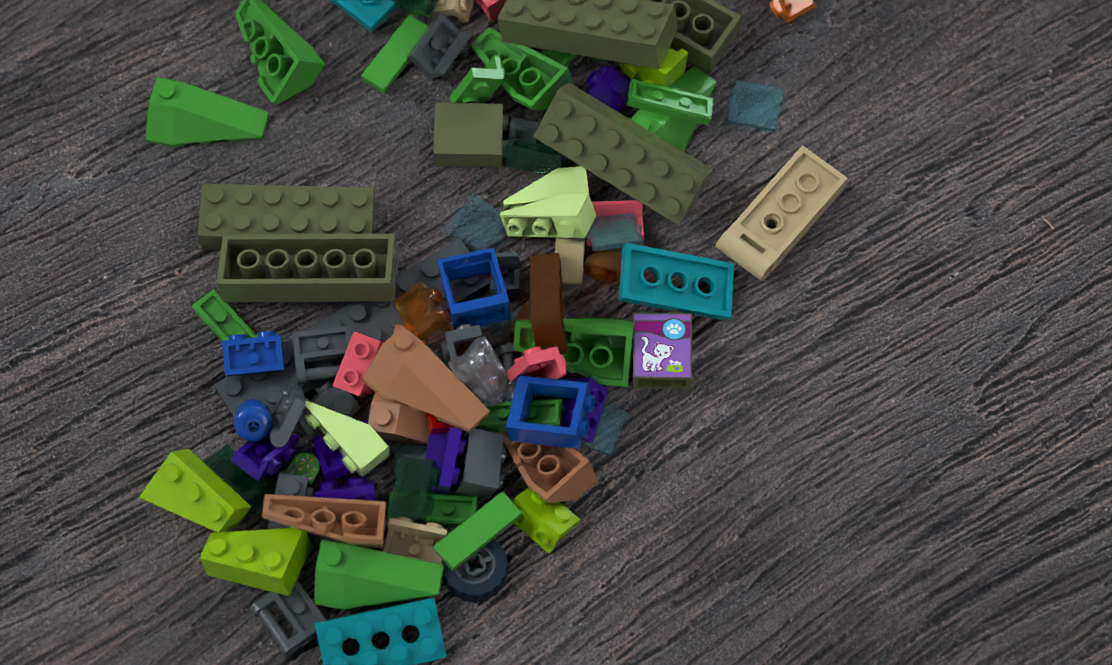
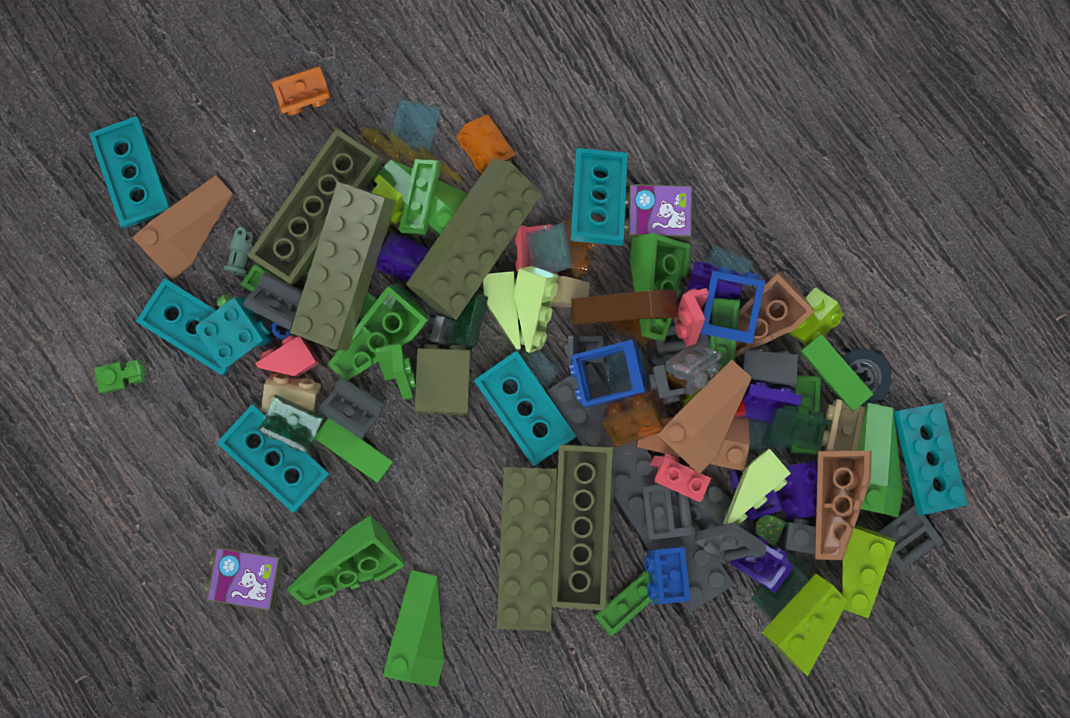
camera: 85 degrees left, 15 degrees up
(258, 414) = (735, 574): blue head -> none
(441, 198) = (507, 408): none -> teal plate
(730, 86) = (399, 145): none -> clear yellow piece
(737, 173) = (484, 142): none -> orange bracket
(789, 204) = (520, 94): tan hinge -> none

